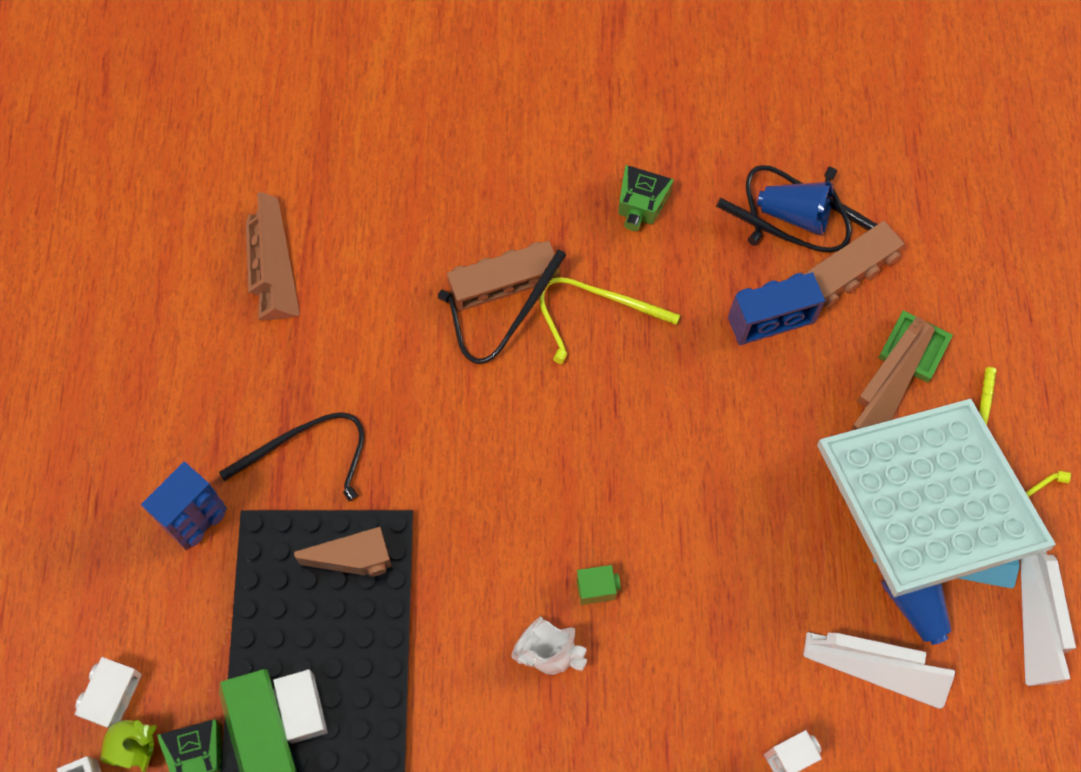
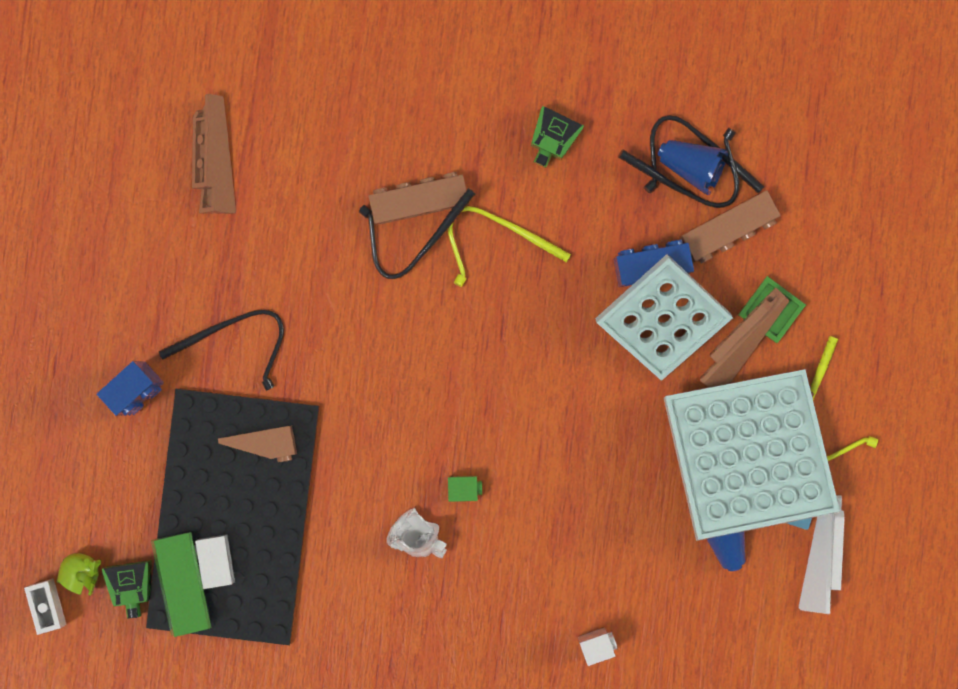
camera: 10 degrees right, 20 degrees up
(107, 693) = (62, 528): white brick -> none
(761, 342) = (664, 303): none -> light aqua piece
(883, 665) = (683, 580): white wedge -> none

